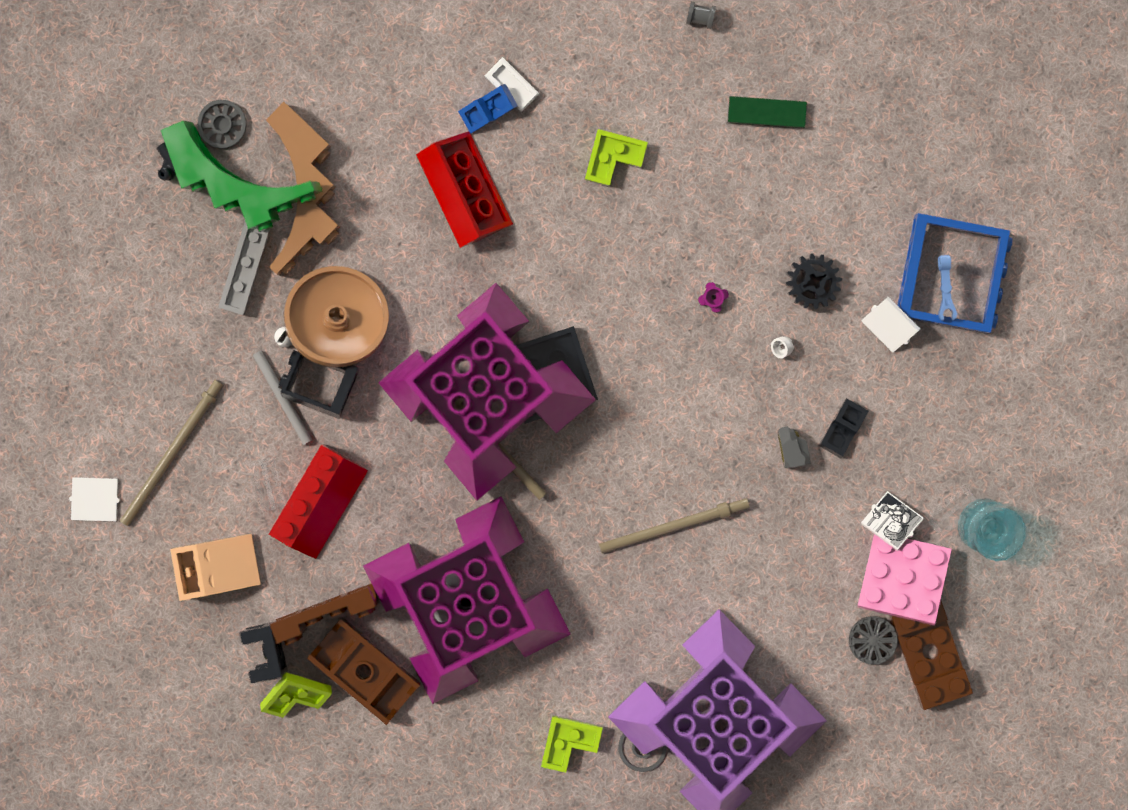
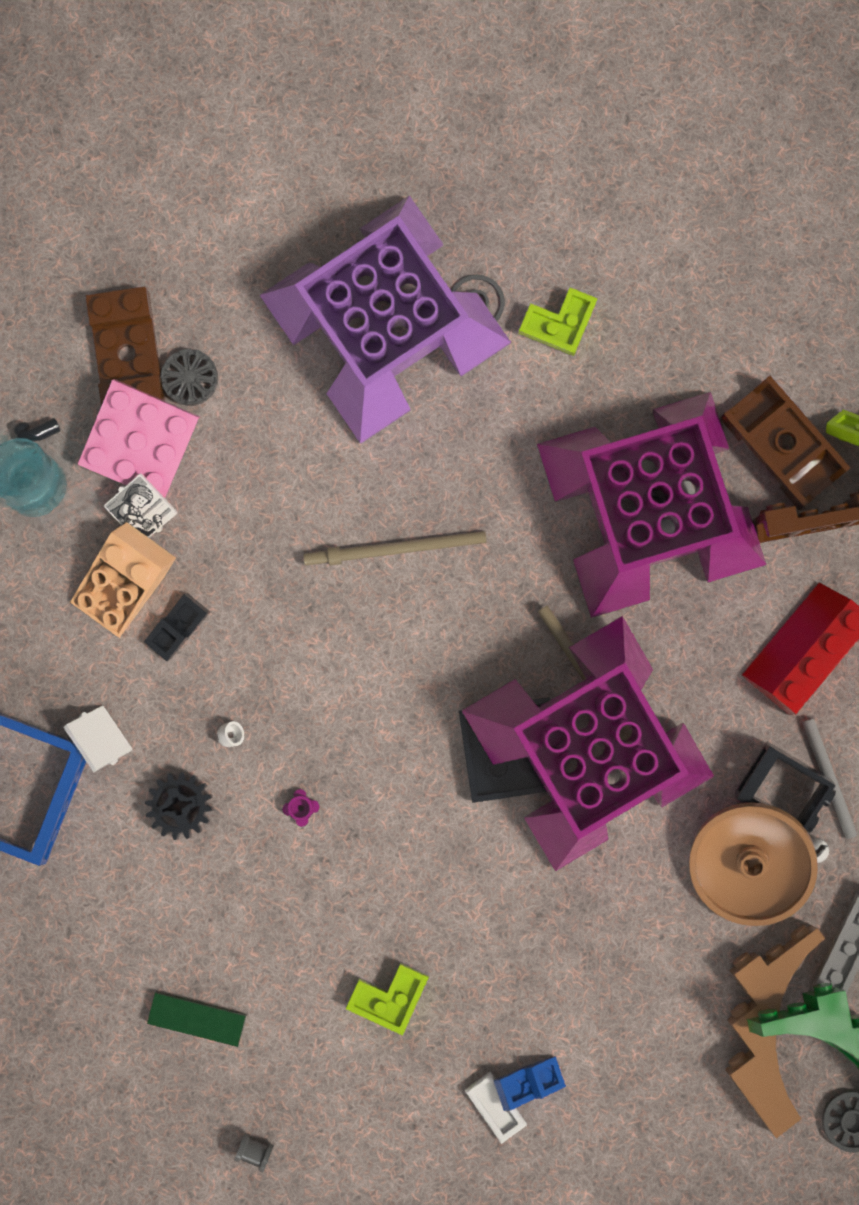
camera: 170 degrees left, 5 degrees down
(464, 188) = (574, 991): red slope -> none
(793, 448) = (240, 613): dark grey rock -> none
(896, 460) = (122, 578): none -> light nougat slope
(944, 266) = (19, 797): medium blue piece -> none
(992, 569) = (37, 432): none -> black arm

